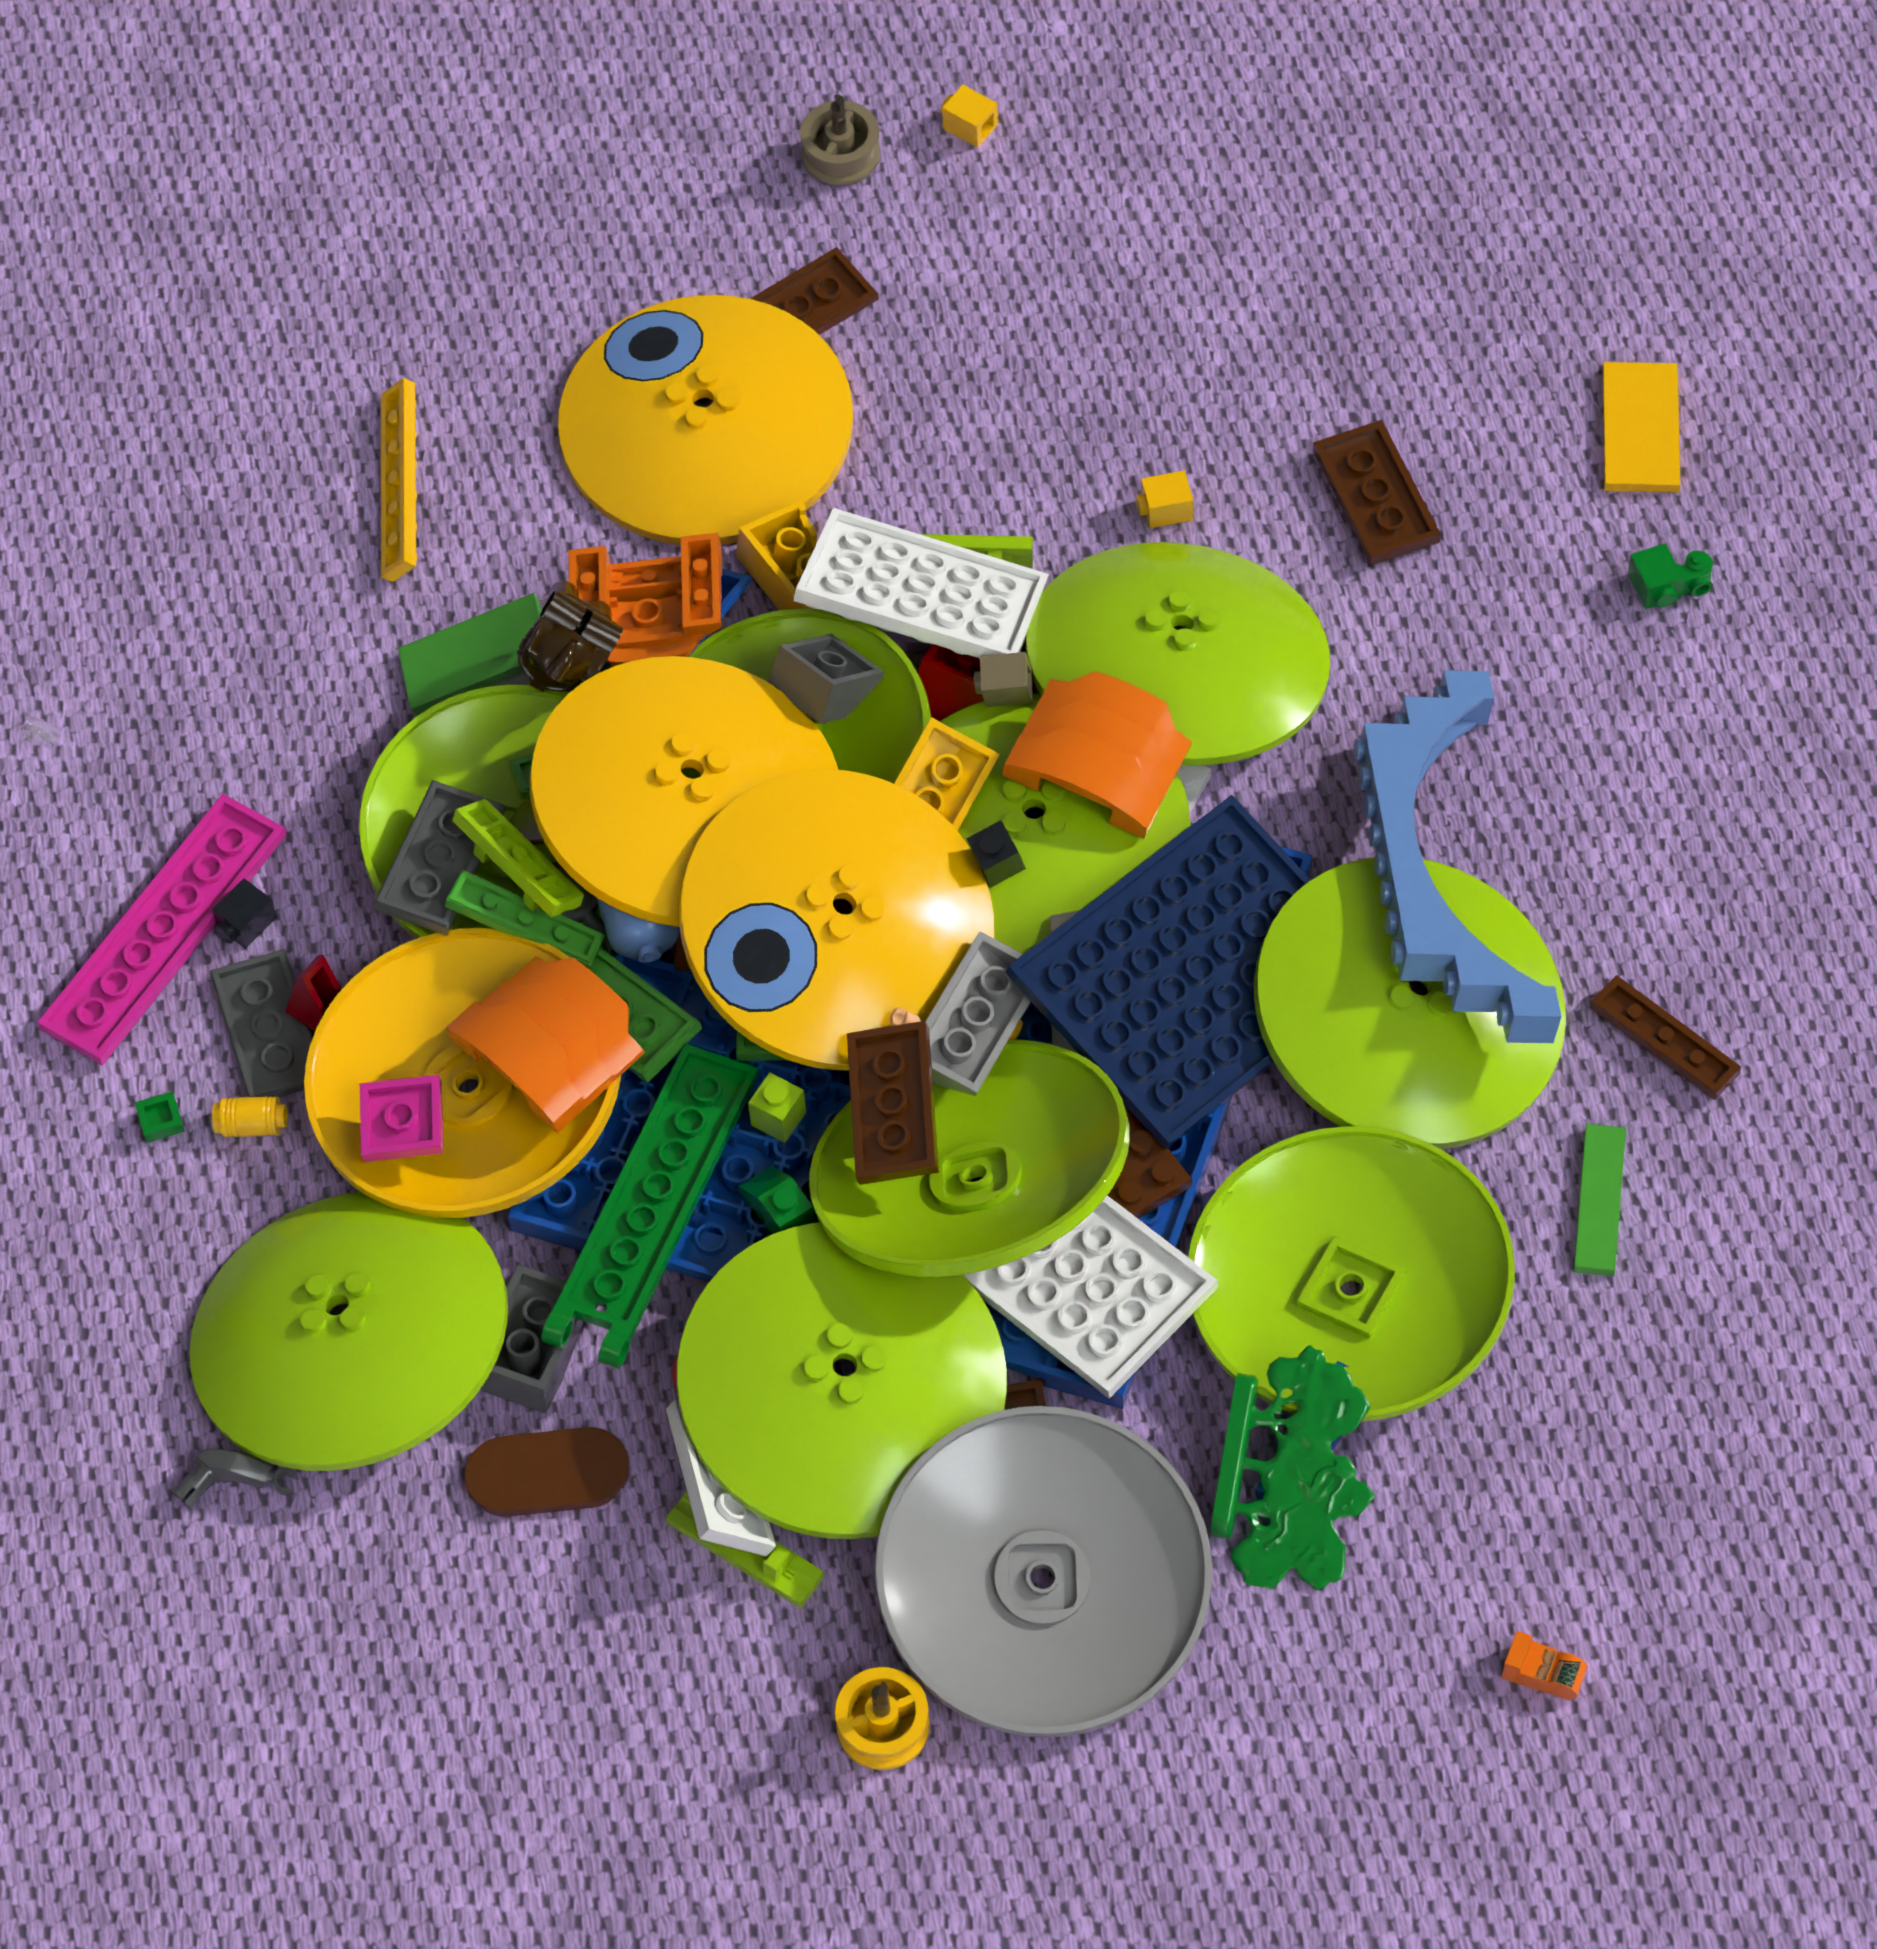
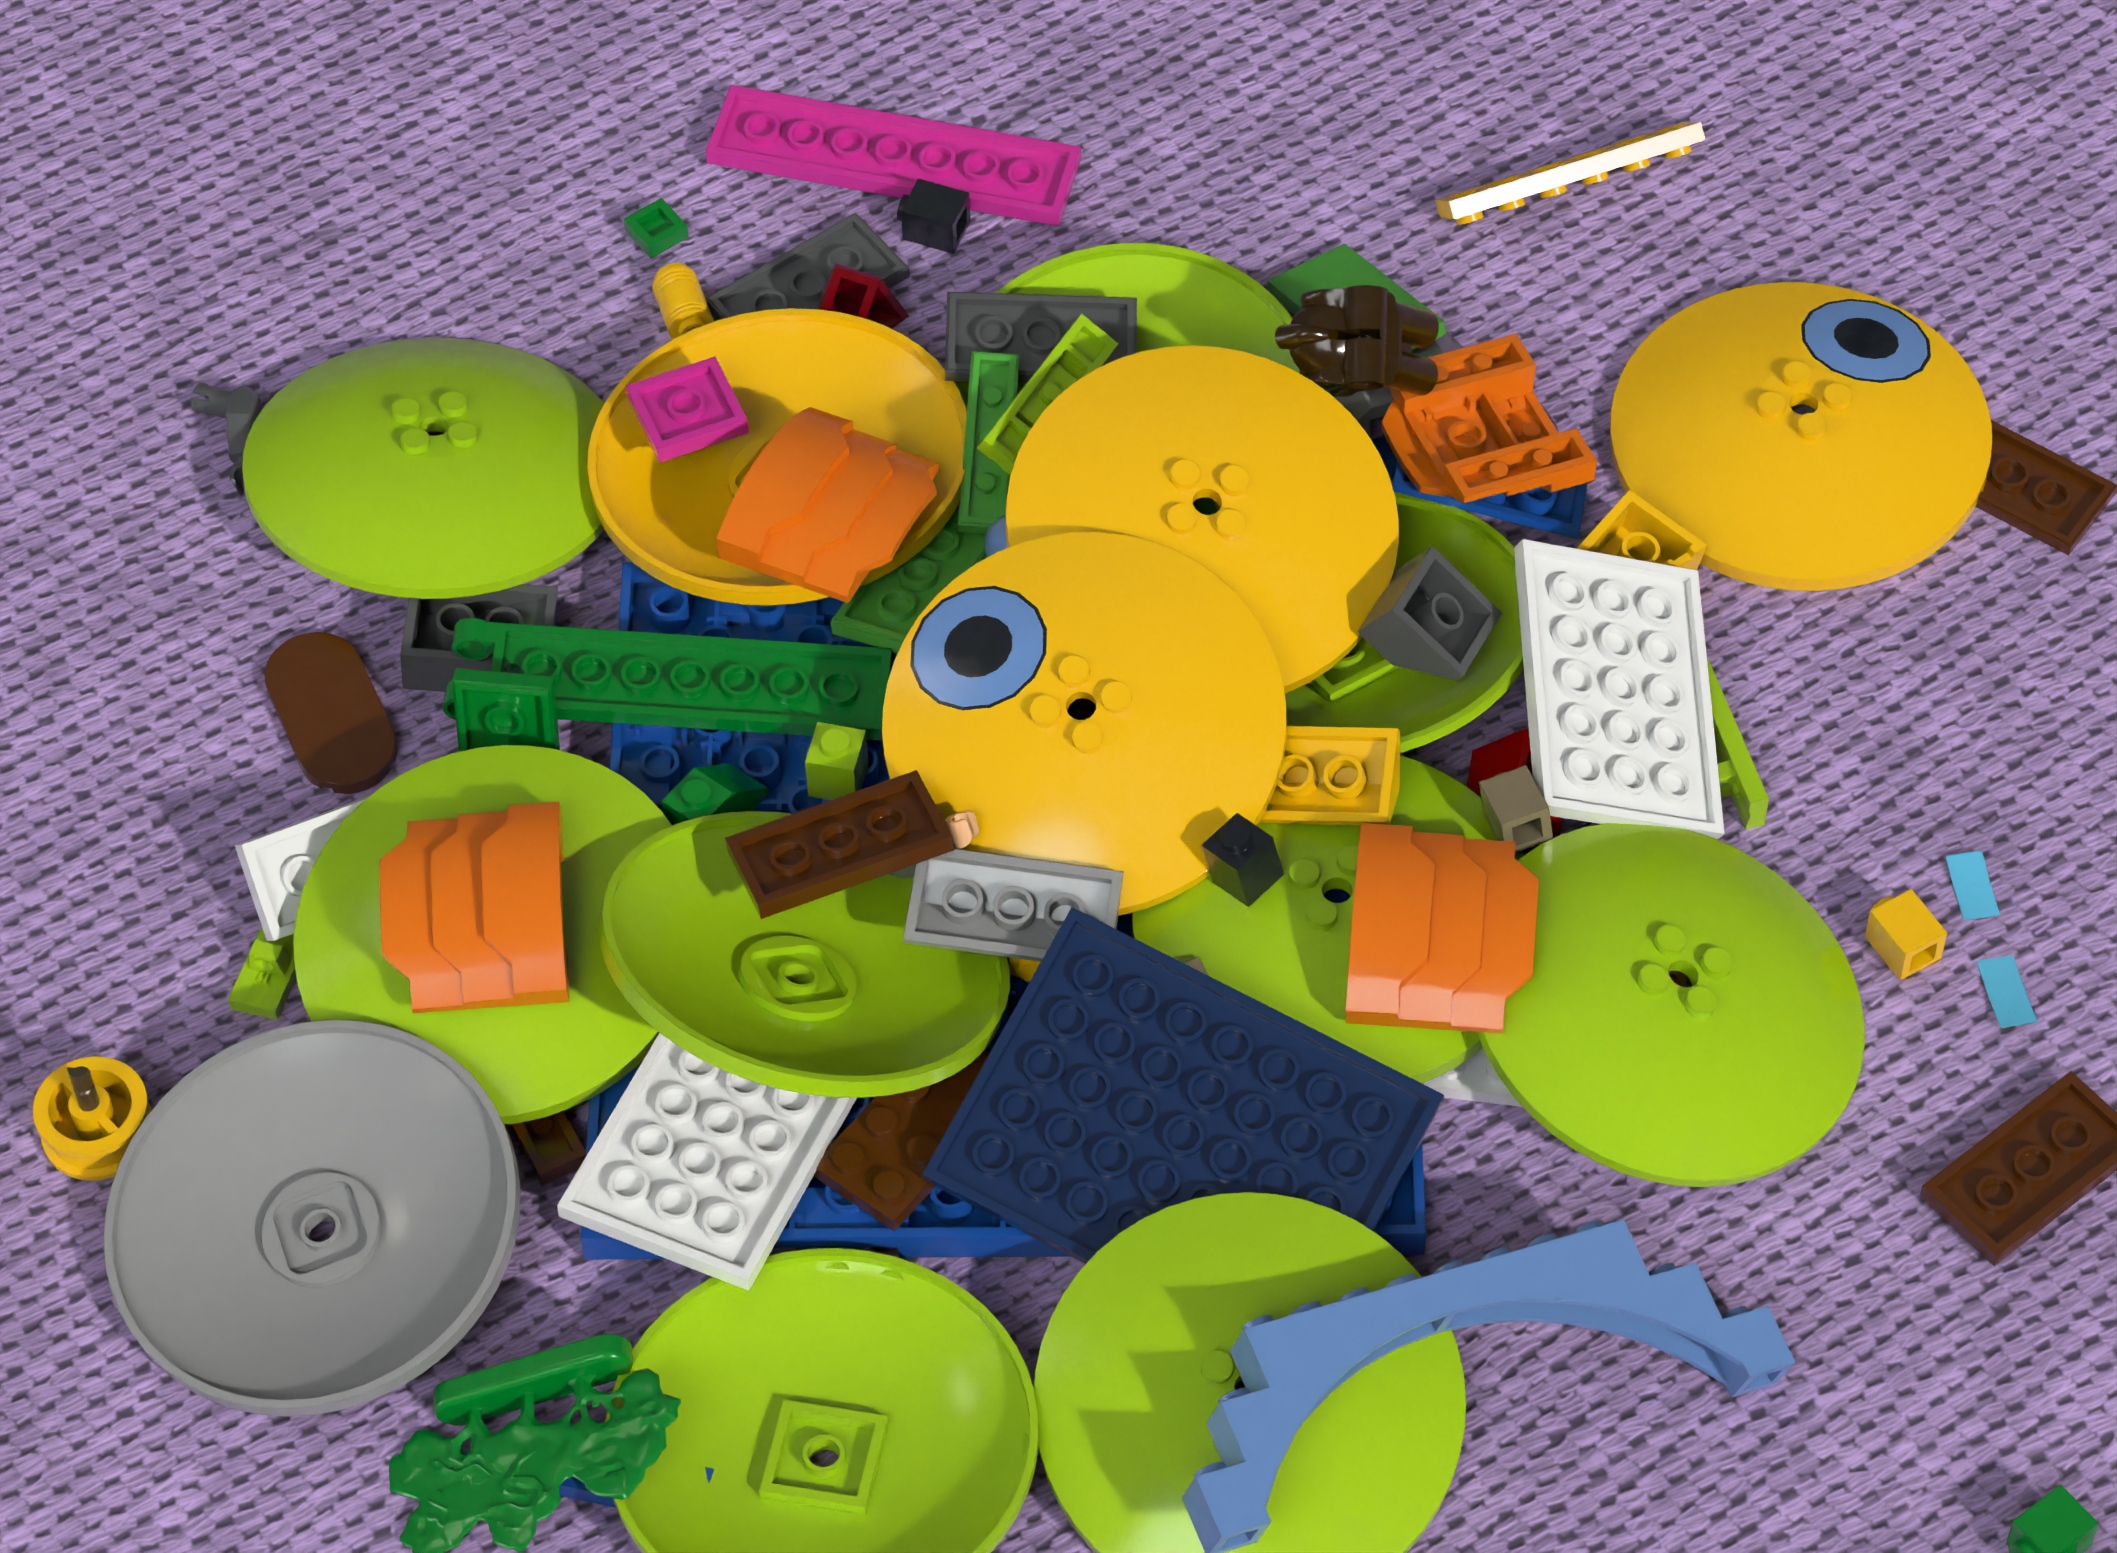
camera: 70 degrees right, 5 degrees down
(652, 1328) = (504, 709): none -> green tile
(848, 1359) = (478, 909): none -> orange slope
(1206, 460) = (2001, 973): none -> medium azure sticker

